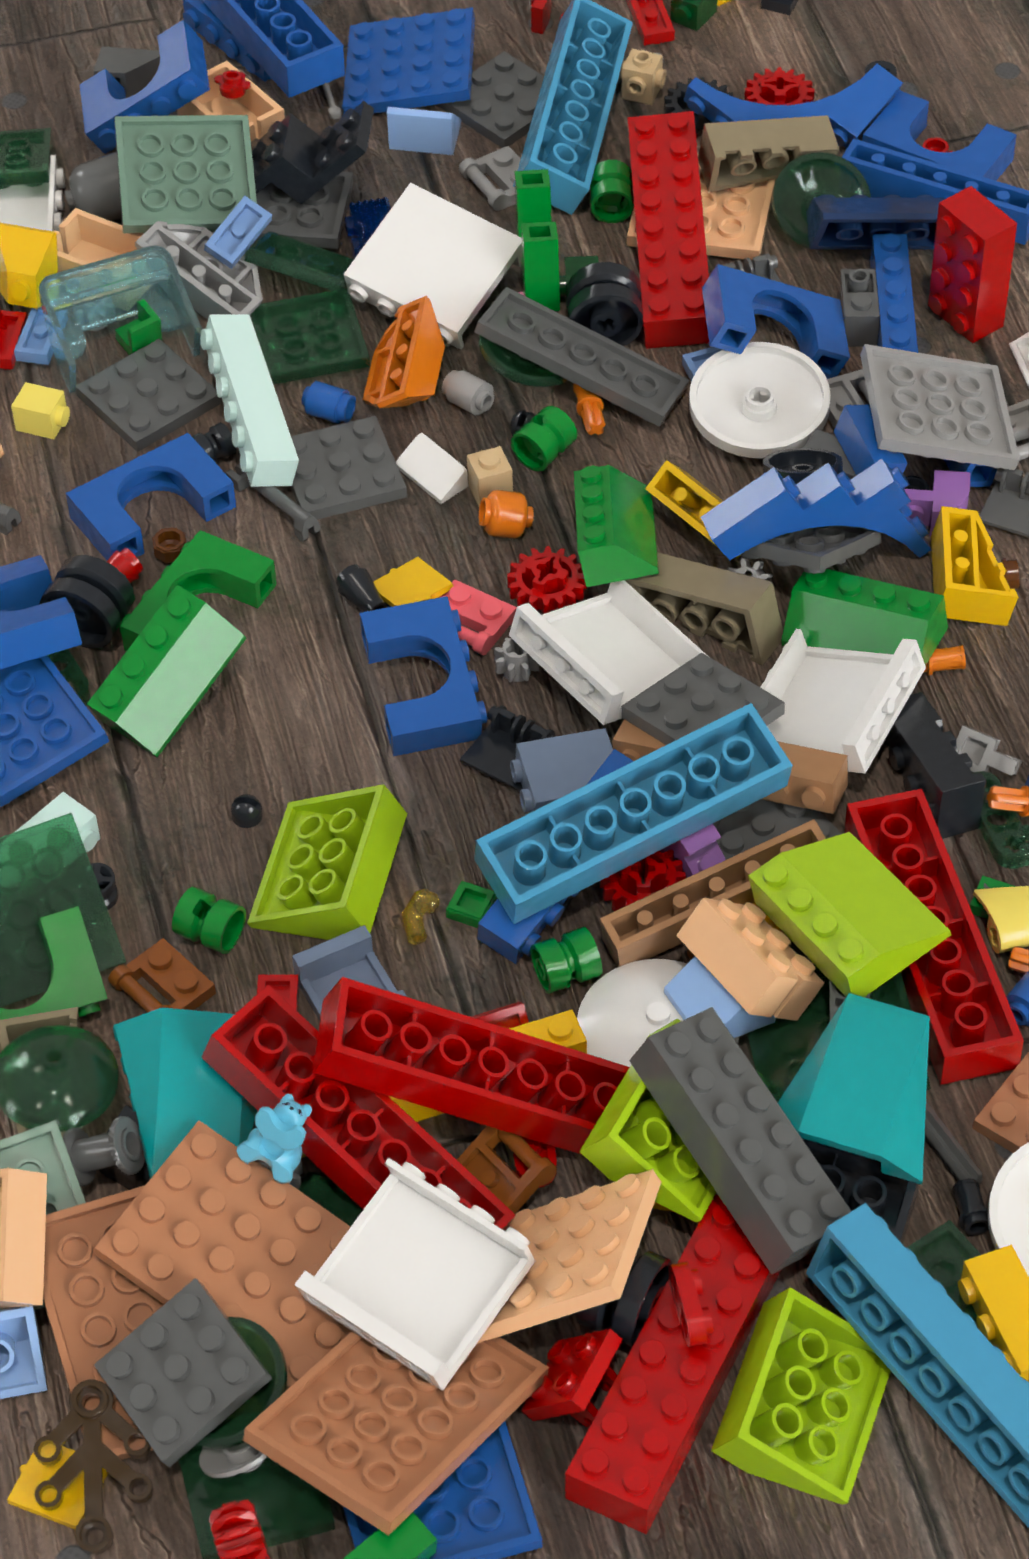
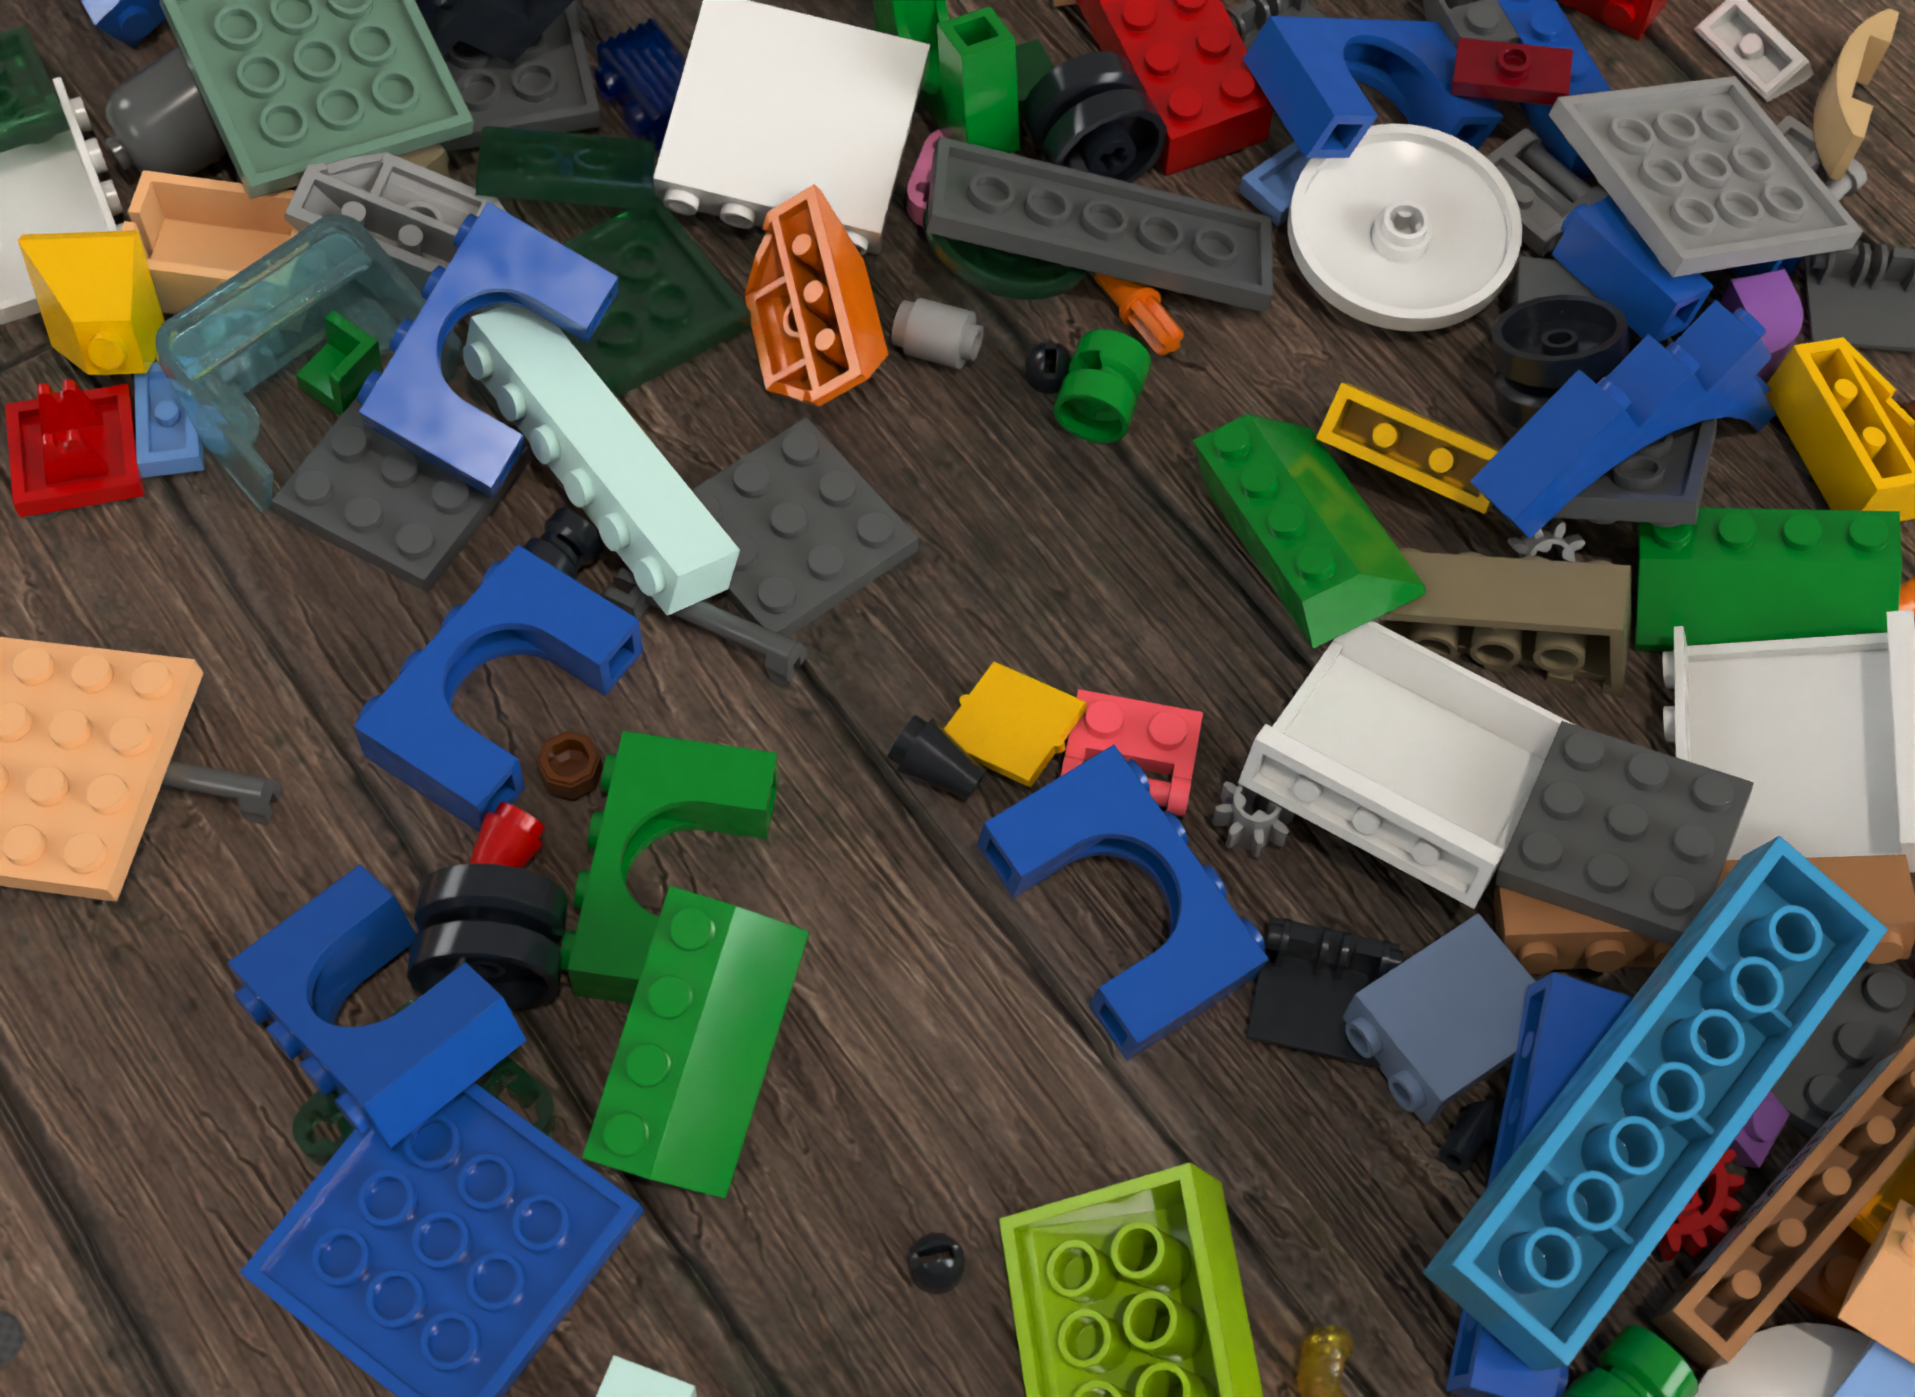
camera: 25 degrees left, 10 degrees up
(40, 410) = (232, 567): light yellow brick -> none
(227, 289) = (494, 265): none -> arch
(238, 232) = (451, 149): medium blue plate -> none
(328, 402) = (719, 415): blue brick -> none
(433, 469) = (943, 489): white slope -> none
(470, 904) = (1402, 1323): green tile -> none
(488, 472) = (1049, 481): tan brick -> none
(505, 514) = (1105, 543): orange head -> none
(546, 580) = (1201, 655): red gear -> none
(857, 329) = (1511, 71): none -> dark red plate

